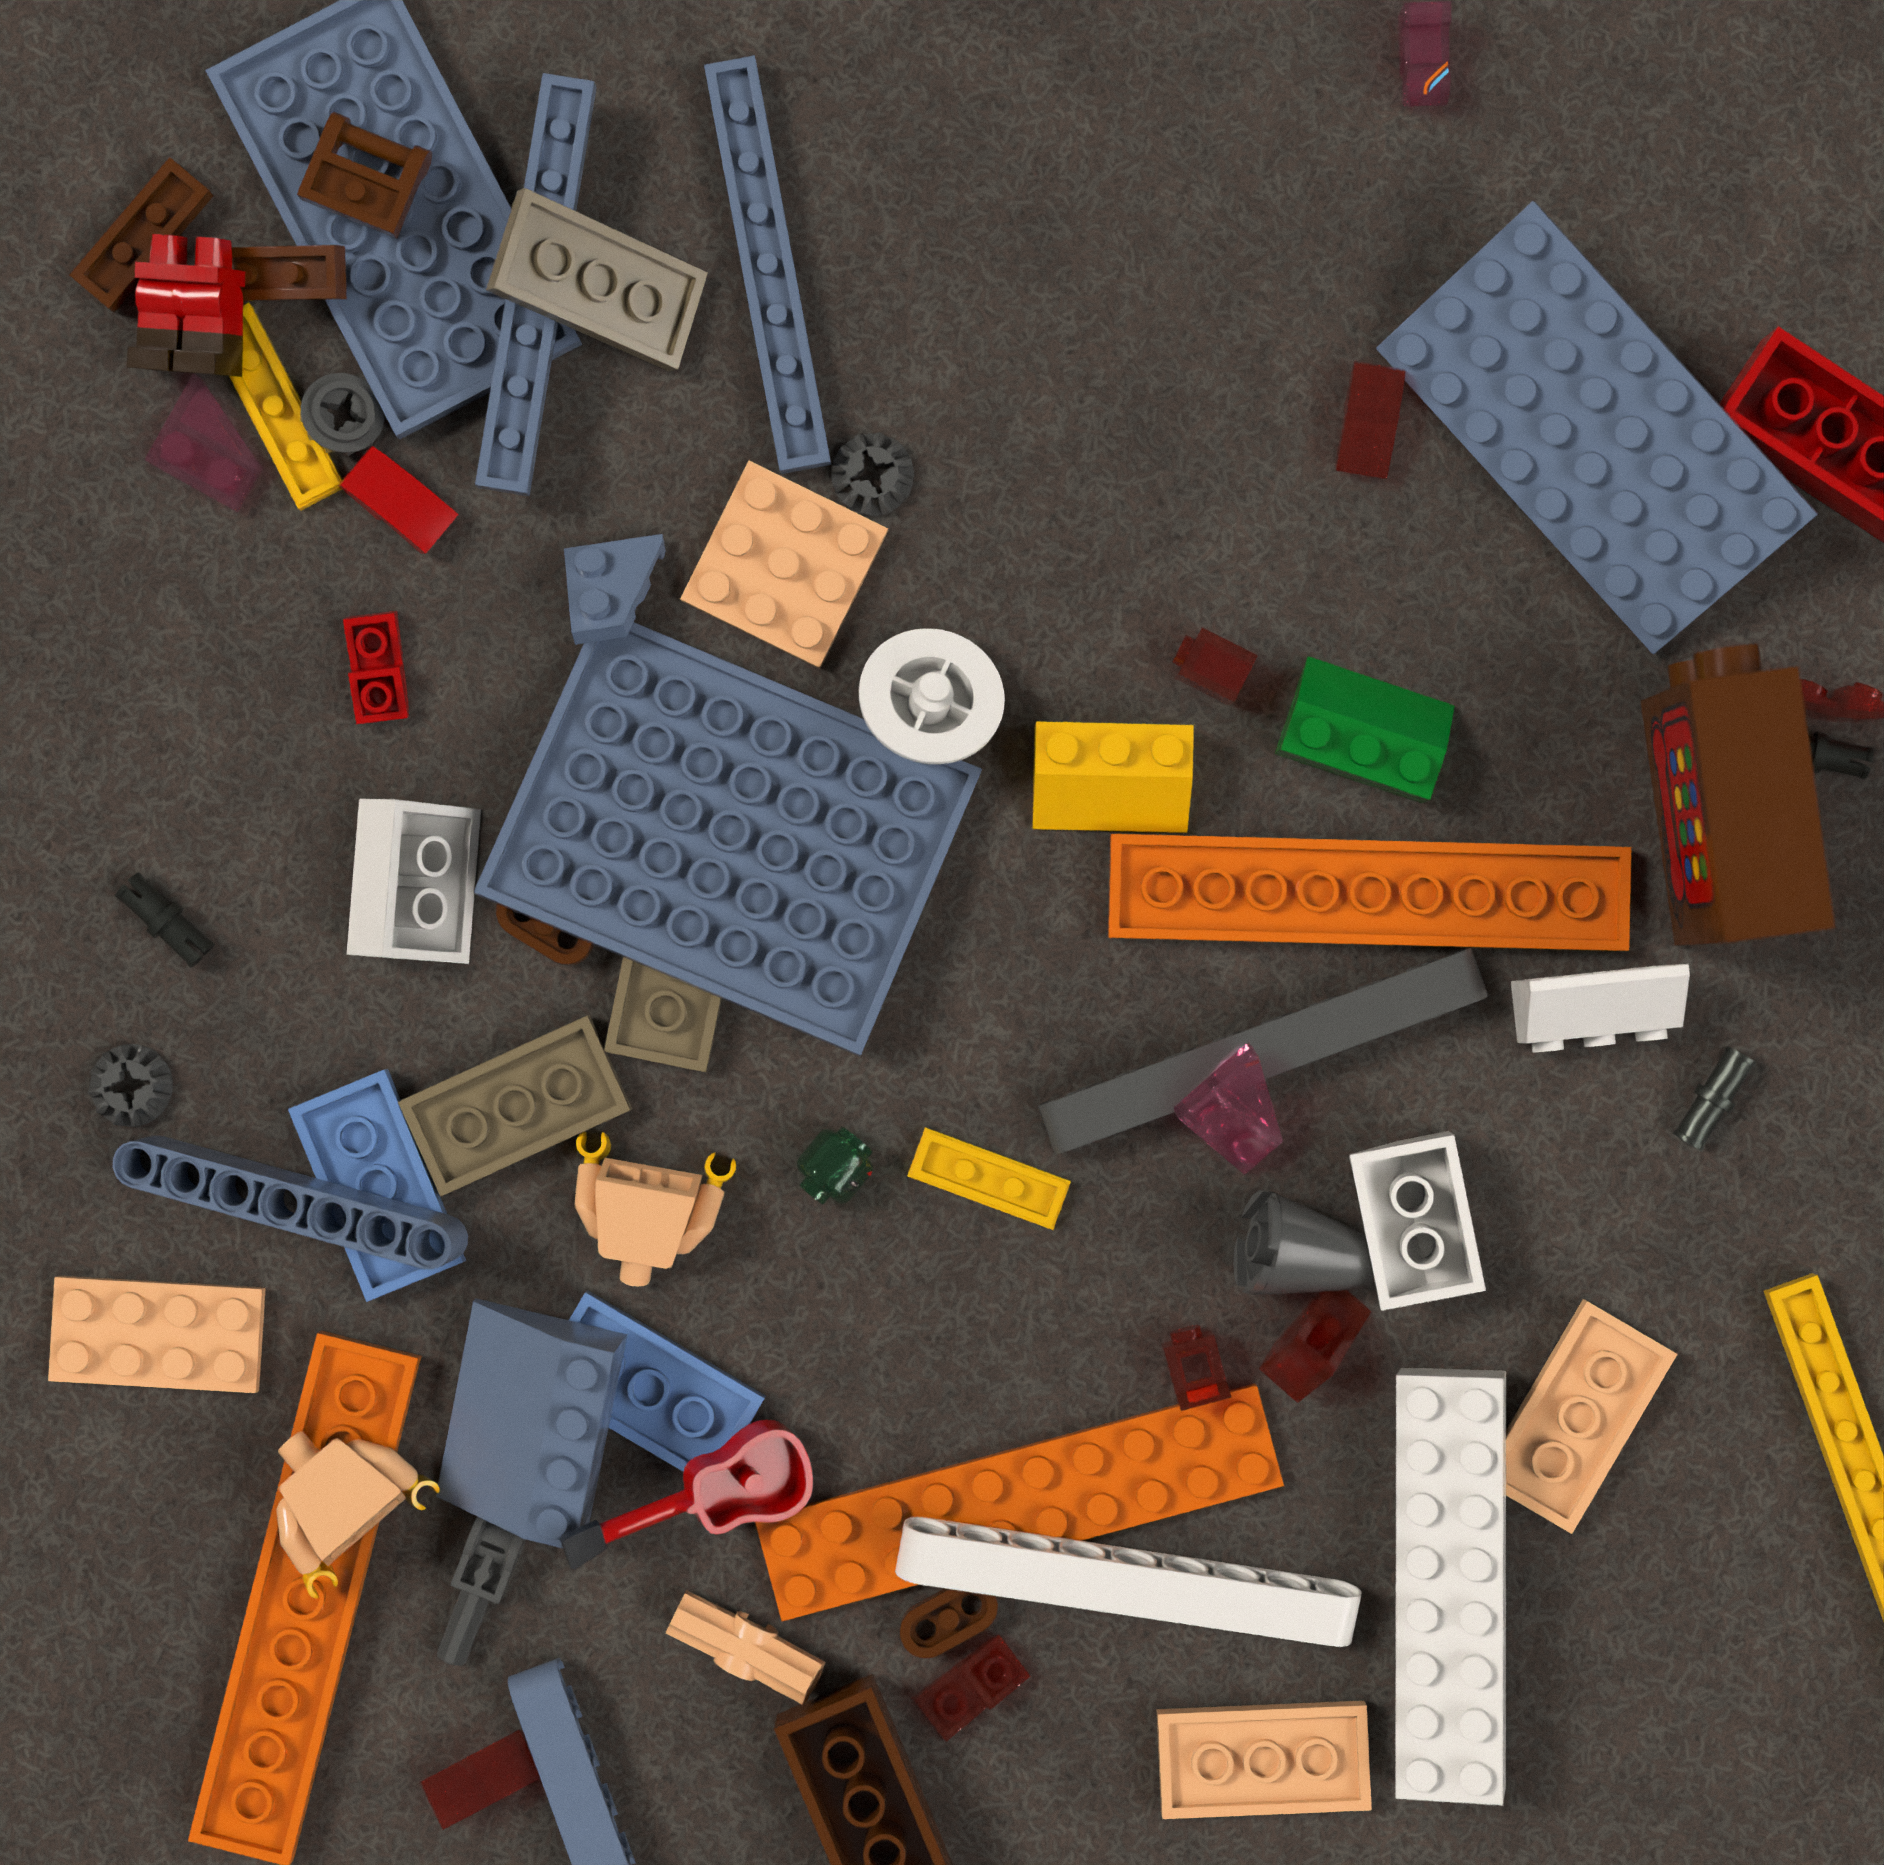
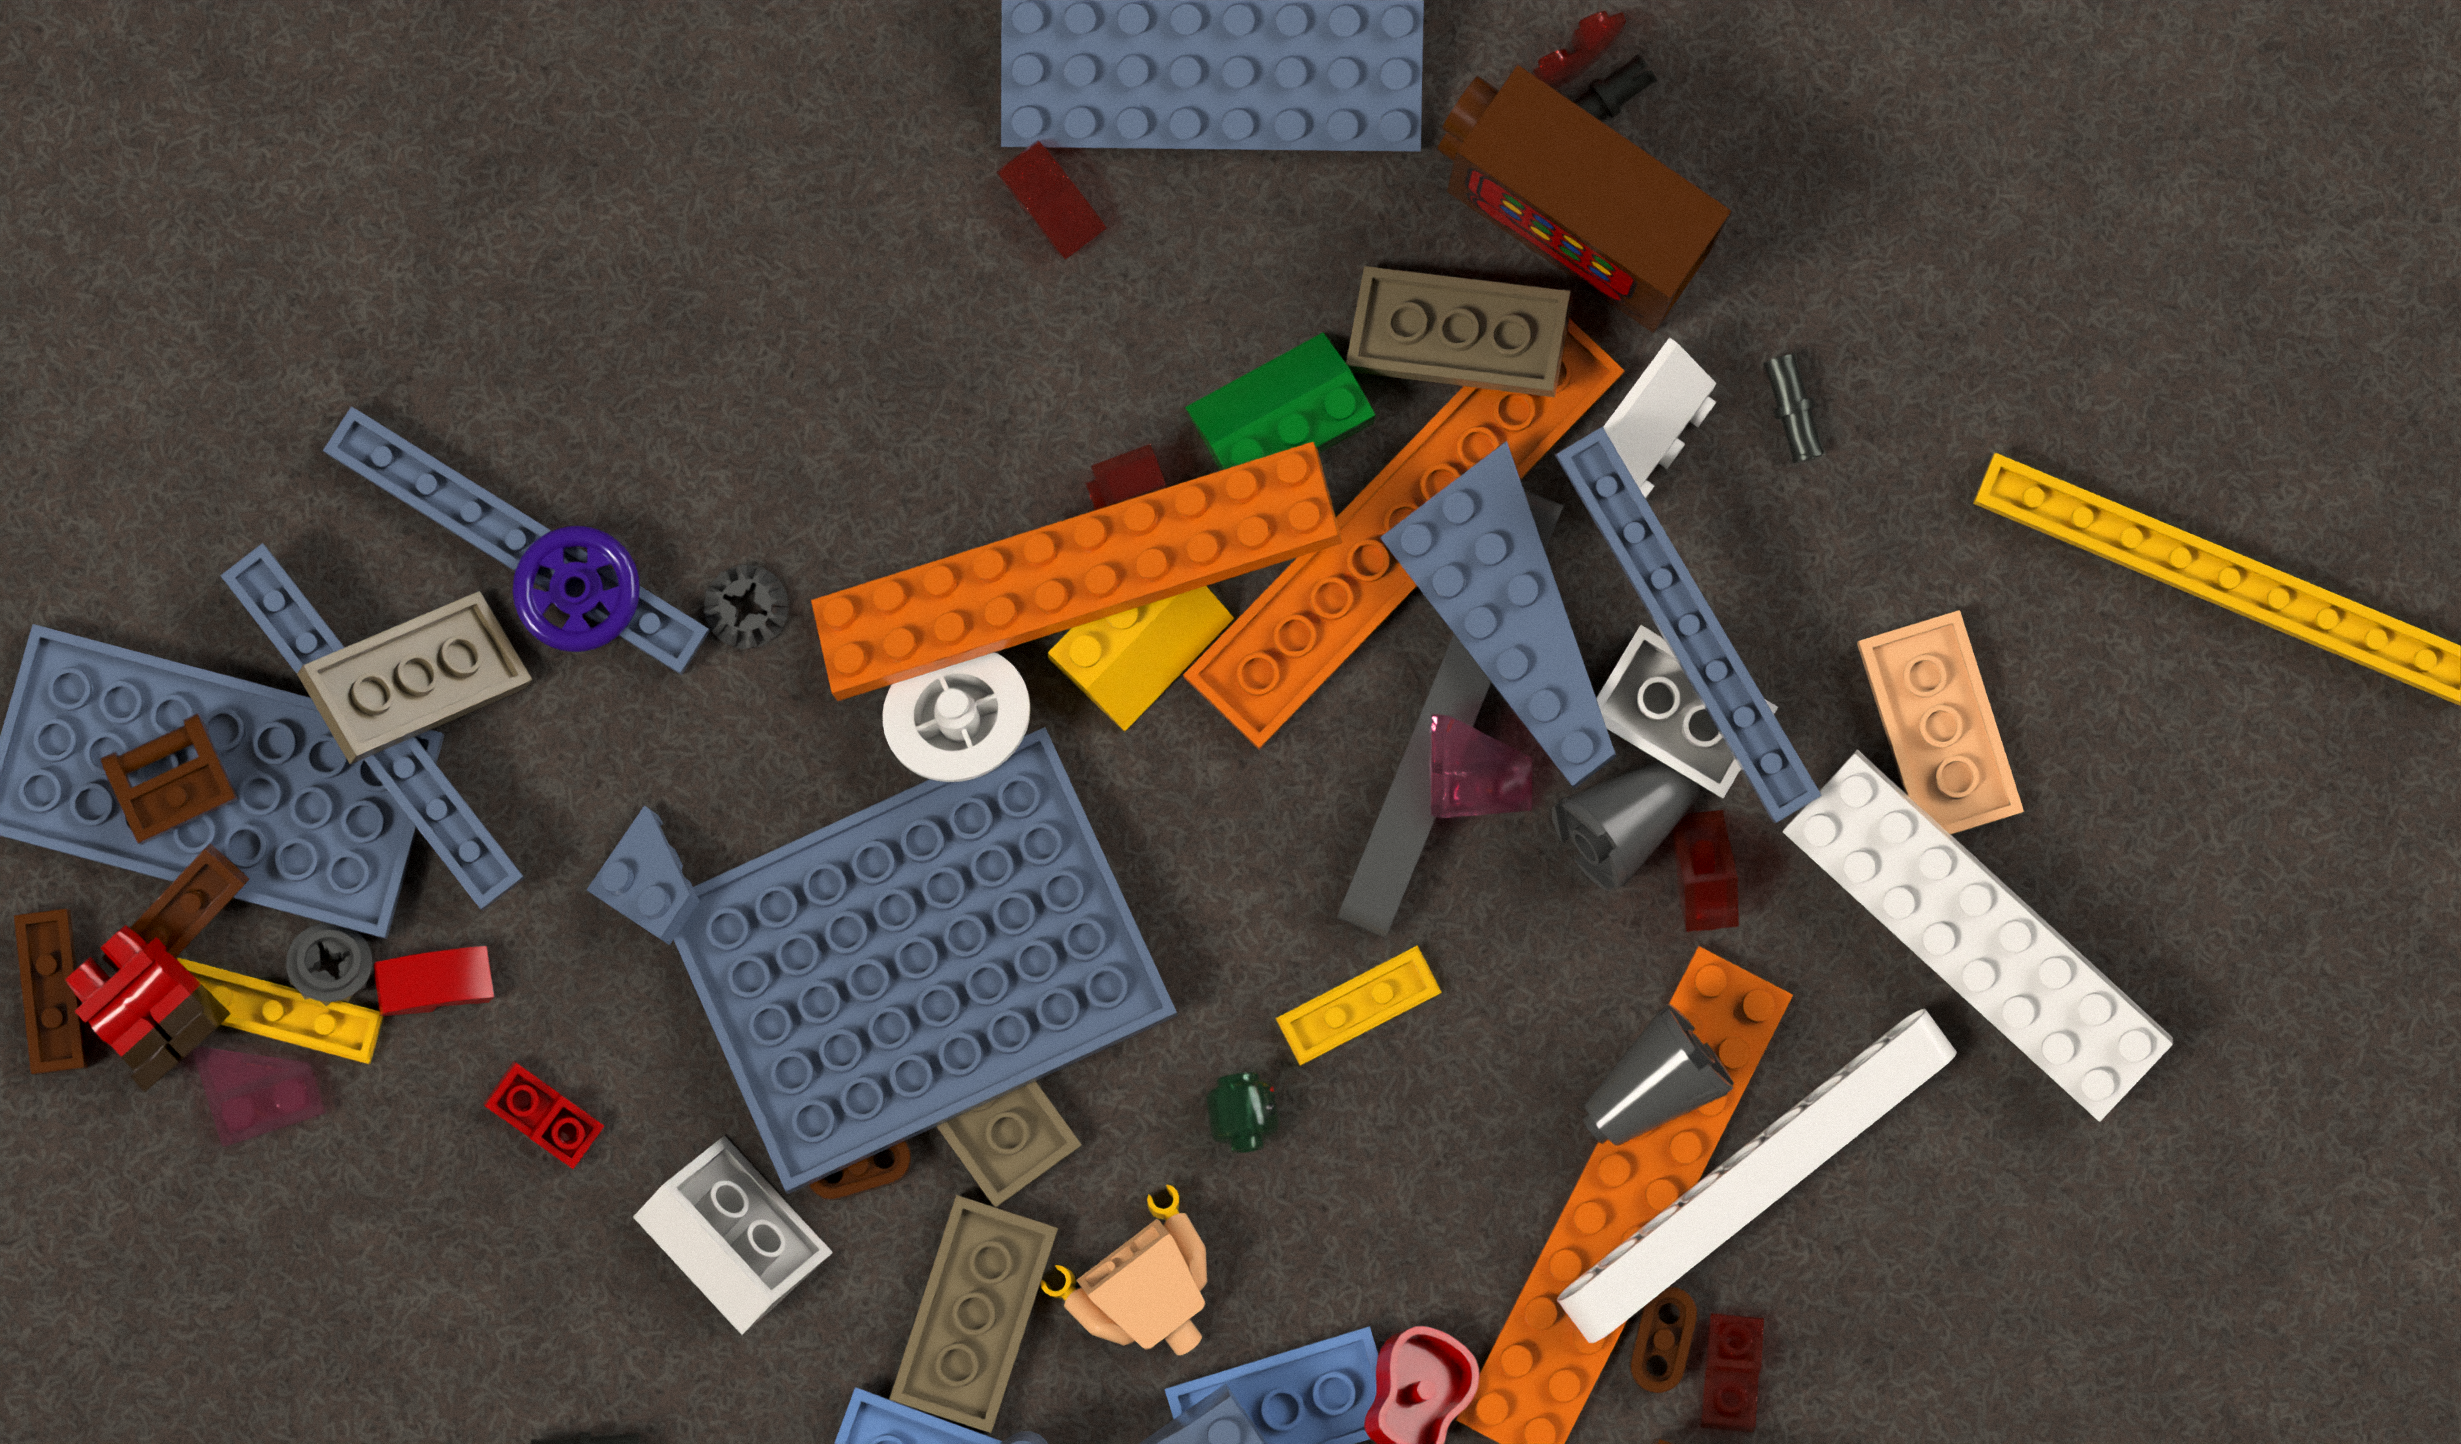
camera: 55 degrees left, 5 degrees down
(739, 368) = (601, 552): none -> dark purple plate
(784, 564) = (752, 735): light nougat plate -> none
(1116, 689) = (1076, 571): none -> orange plate
(1129, 1450) = (1656, 1081): none -> dark grey cone
(1202, 1391) = (1662, 990): clear red window -> none
(1263, 1759) = (1986, 1199): light nougat plate -> none
(1382, 1000) = (1494, 588): none -> sand blue wing
(1487, 1171) = (1688, 625): none -> sand blue plate
(1547, 804) = (1459, 331): none -> dark tan plate

